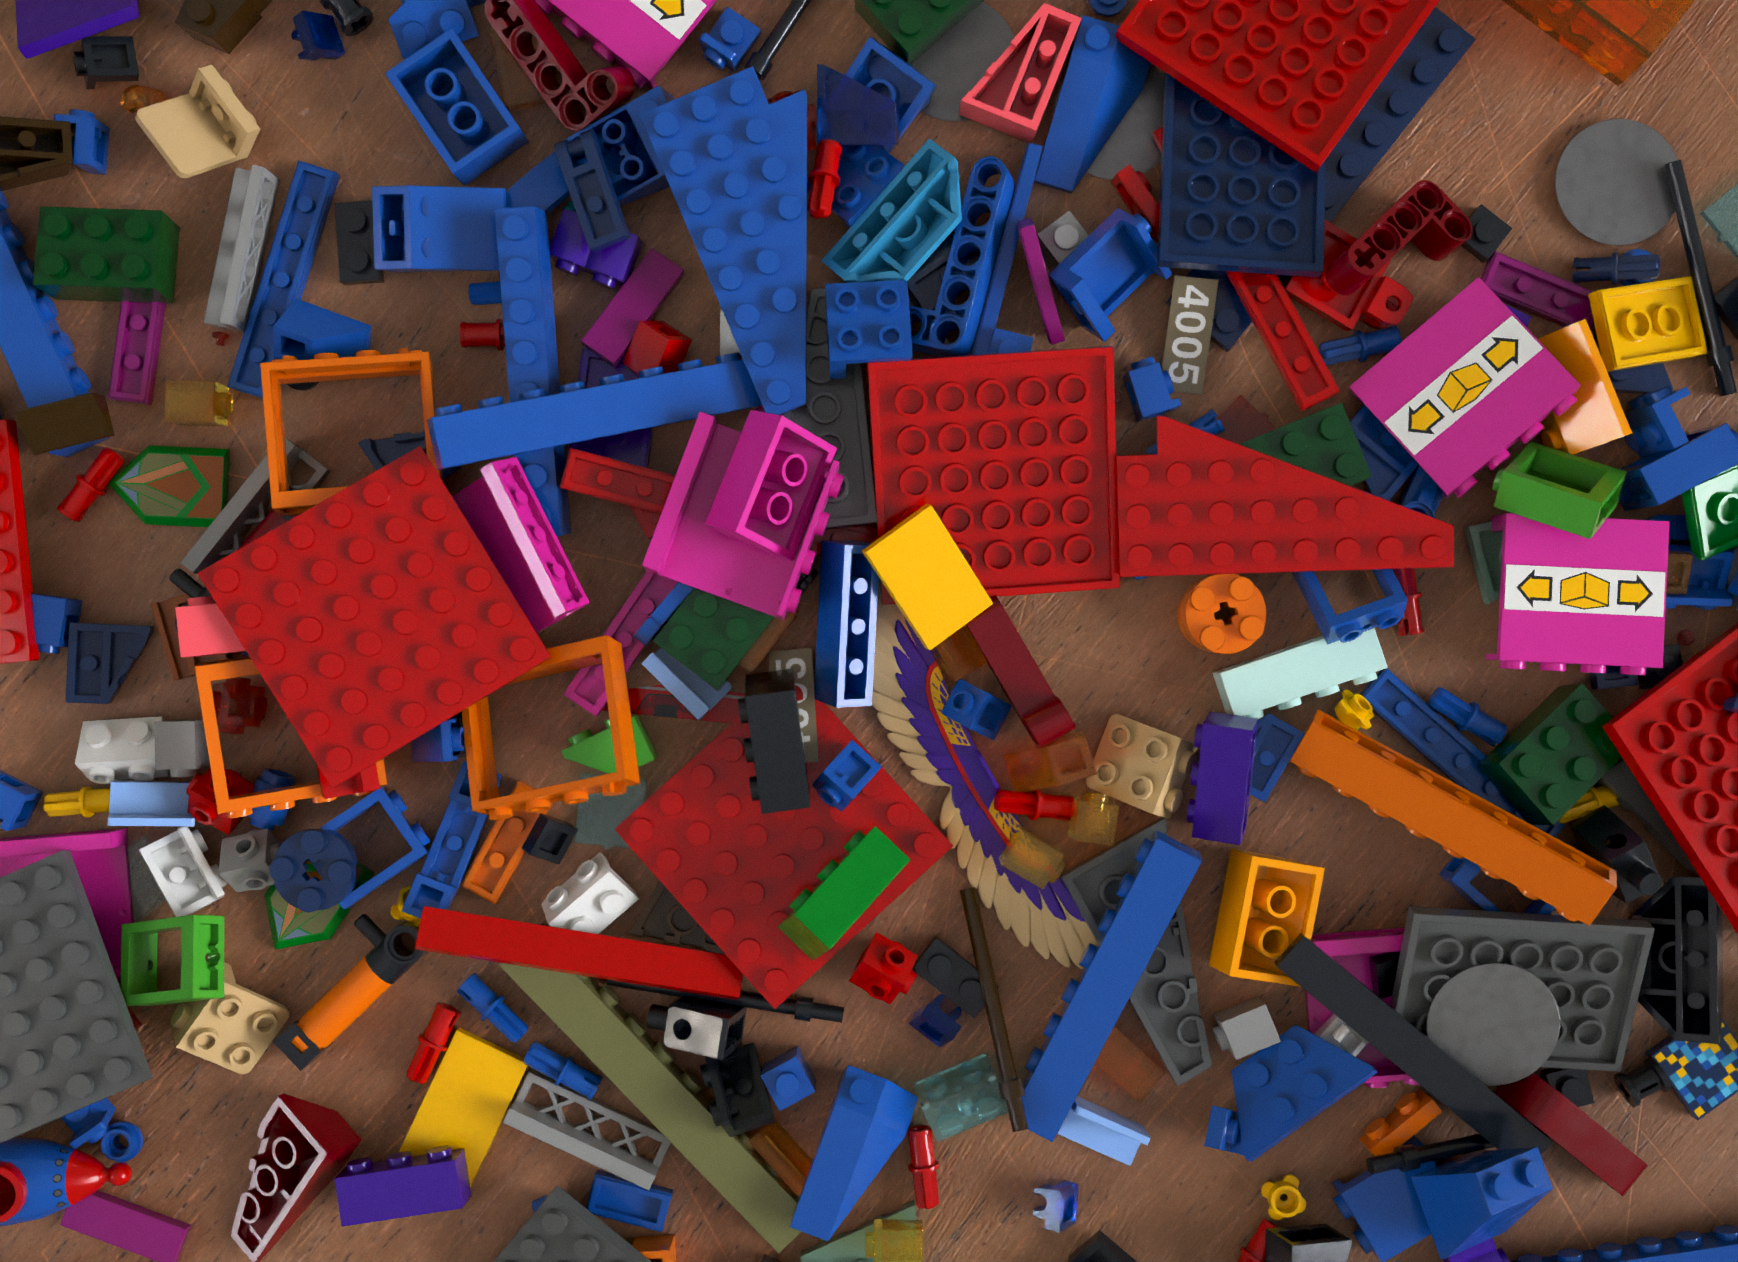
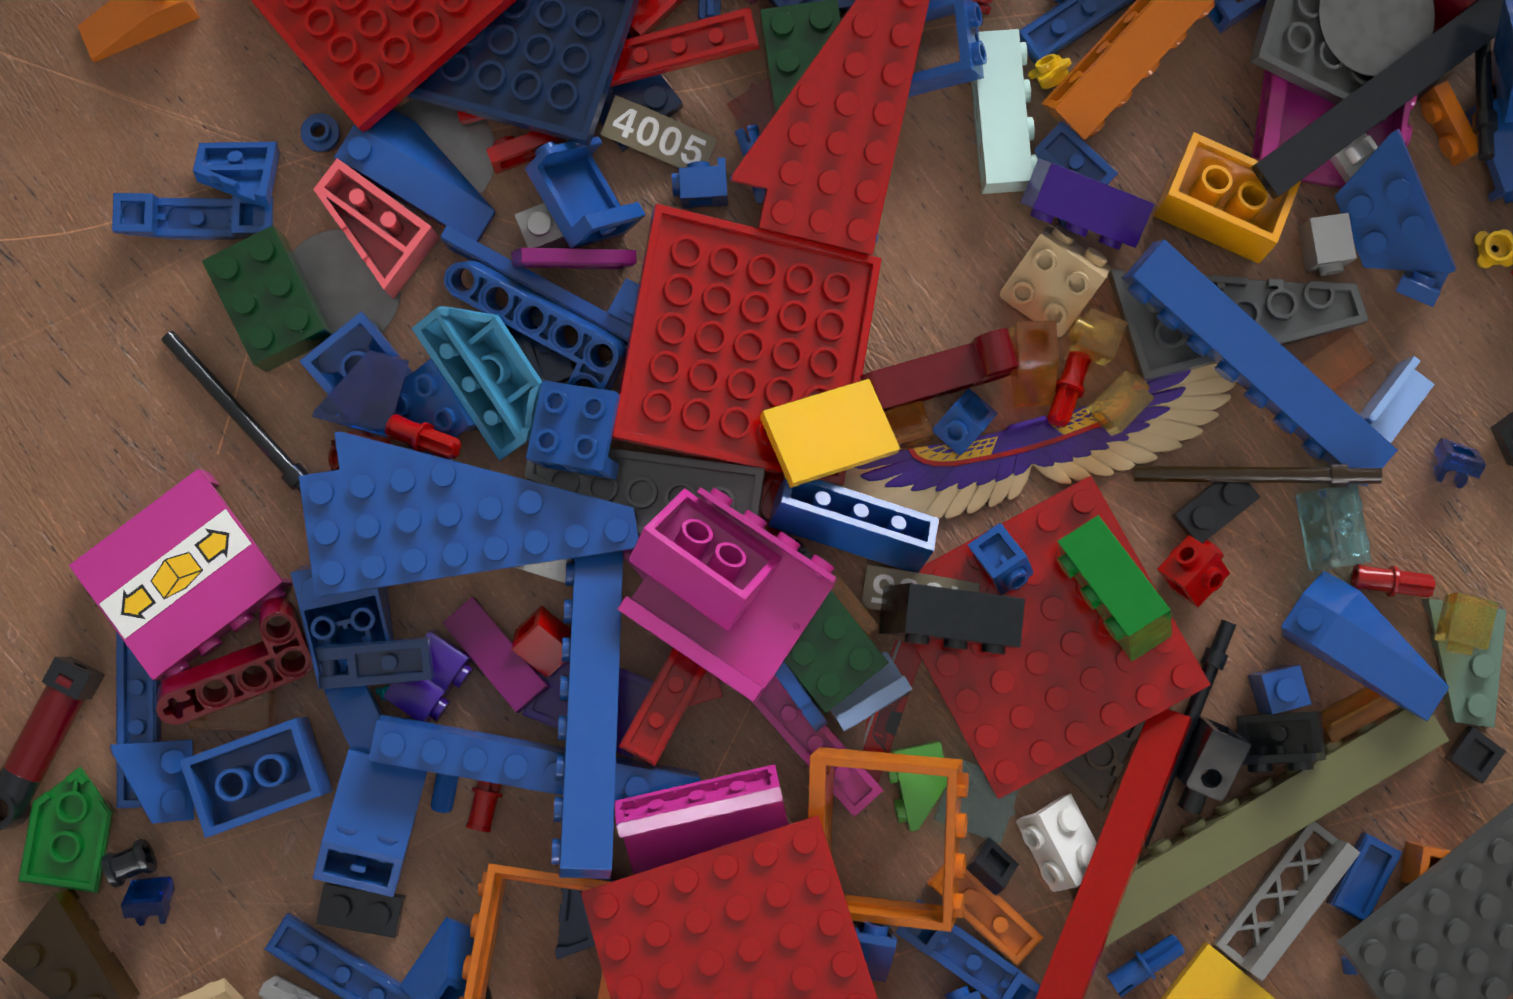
camera: 75 degrees left, 5 degrees down
(562, 1070) = (1222, 910): blue axle -> none
(729, 40) = (263, 498): blue bracket -> none
(935, 1023) = (1258, 534): clear blue tile -> none
(1244, 619) = (947, 156): orange brick -> none
(1383, 973) = (1303, 102): black plate -> none

